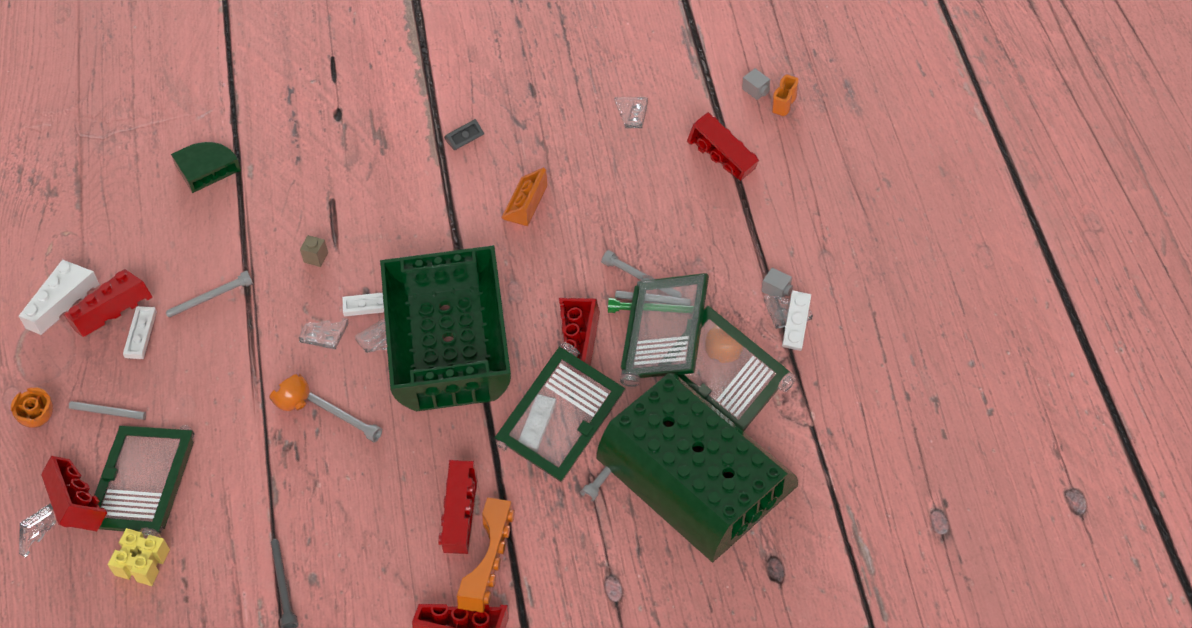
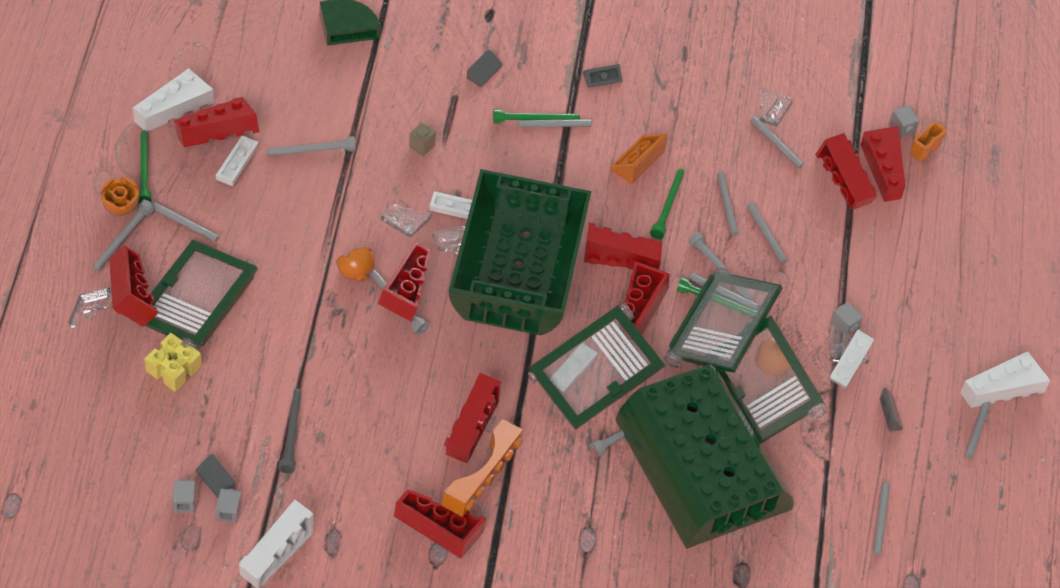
camera: 10 degrees right, 0 degrees up
(57, 397) = (144, 192): none -> green piece
(62, 411) = (144, 208): none -> light grey piece
(346, 397) = (405, 285): none -> red wedge
(349, 165) = (484, 68): none -> dark grey slope
(381, 204) = (500, 116): none -> green piece
(433, 194) = (555, 123): none -> light grey bar
(540, 292) = (620, 249): none -> red wedge
(569, 260) = (659, 229): none -> green piece
(628, 220) = (727, 204): none -> light grey bar
(669, 227) = (767, 233): none -> light grey bar
(670, 152) = (777, 142): none -> light grey bar
(754, 126) = (885, 161): none -> red wedge
(851, 357) = (890, 411): none -> dark grey slope
(885, 465) = (881, 518): none -> light grey bar
(938, 343) = (977, 430): none -> light grey bar
(952, 286) = (1008, 380): none -> white wedge

